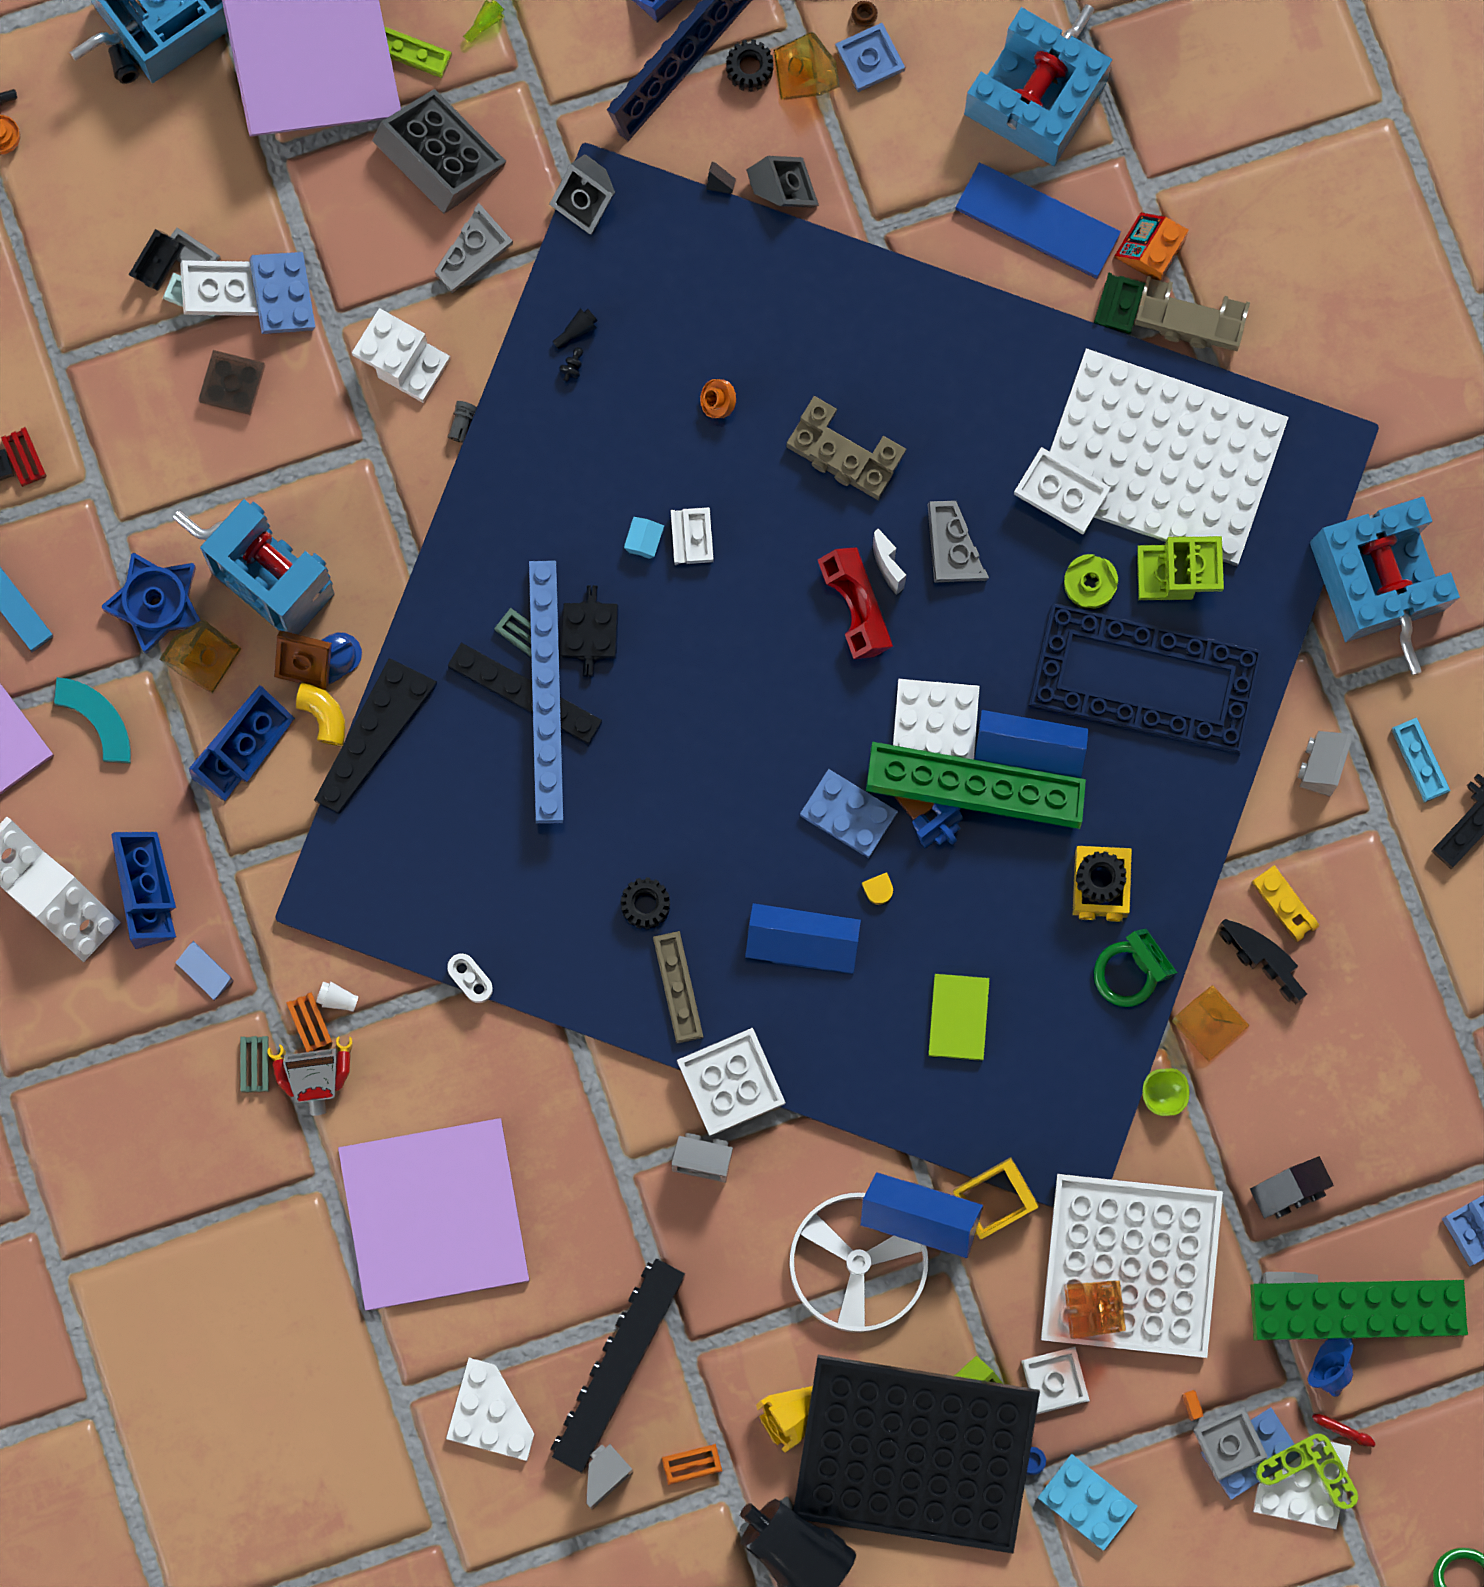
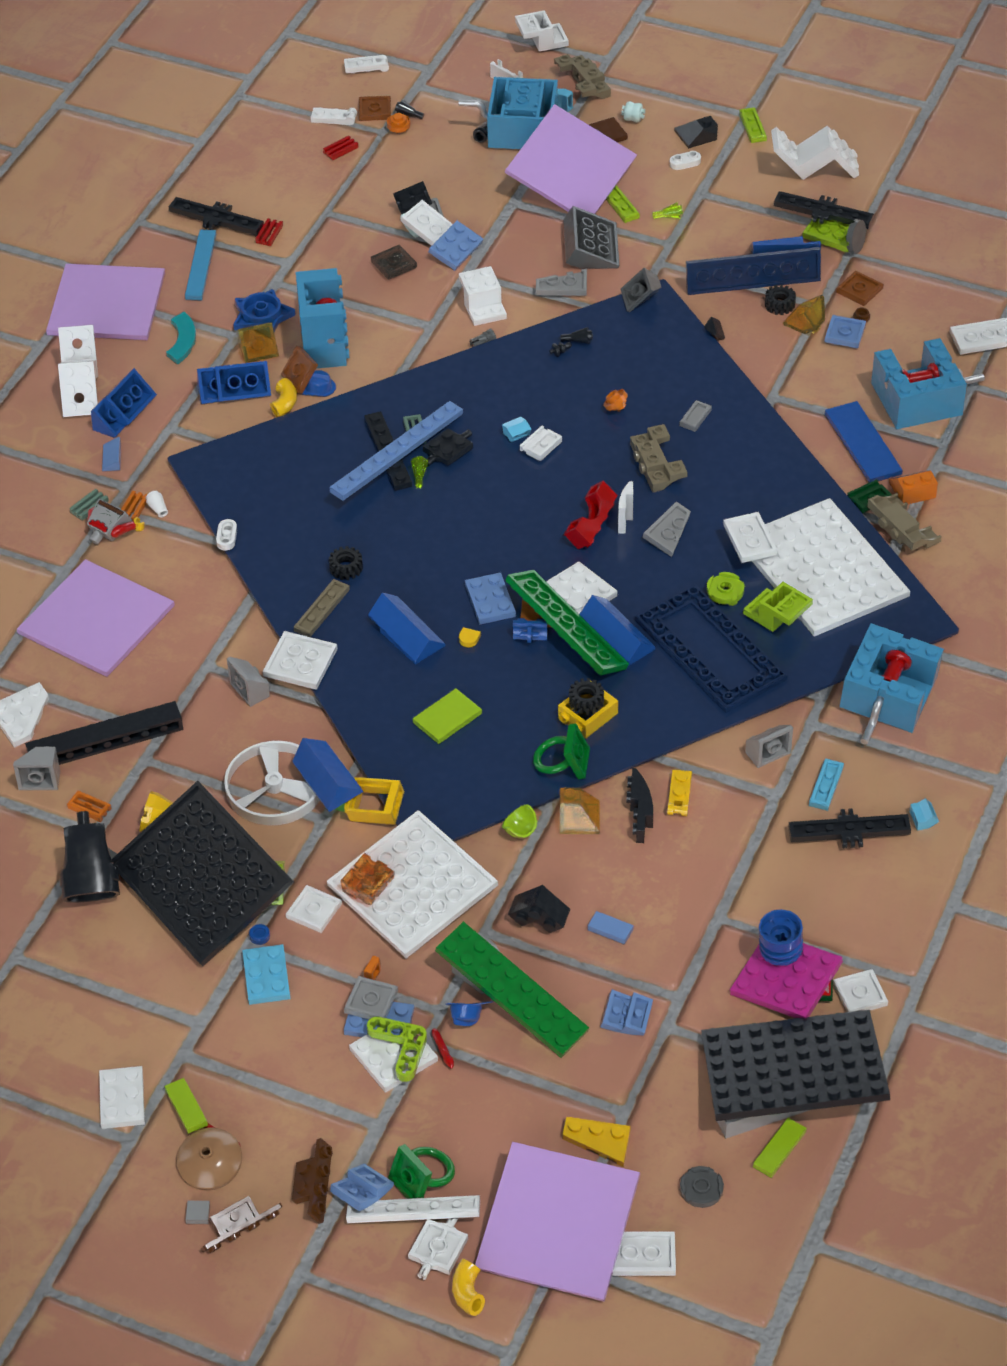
camera: 45 degrees right, 30 degrees down
(383, 716) = (323, 412): black wing -> none
(590, 692) = (419, 467): none -> clear neon green cone
(783, 181) = (747, 346): dark grey slope -> none
(823, 341) = (695, 415): none -> light grey tile
(1371, 1138) = (610, 927): none -> medium blue tile

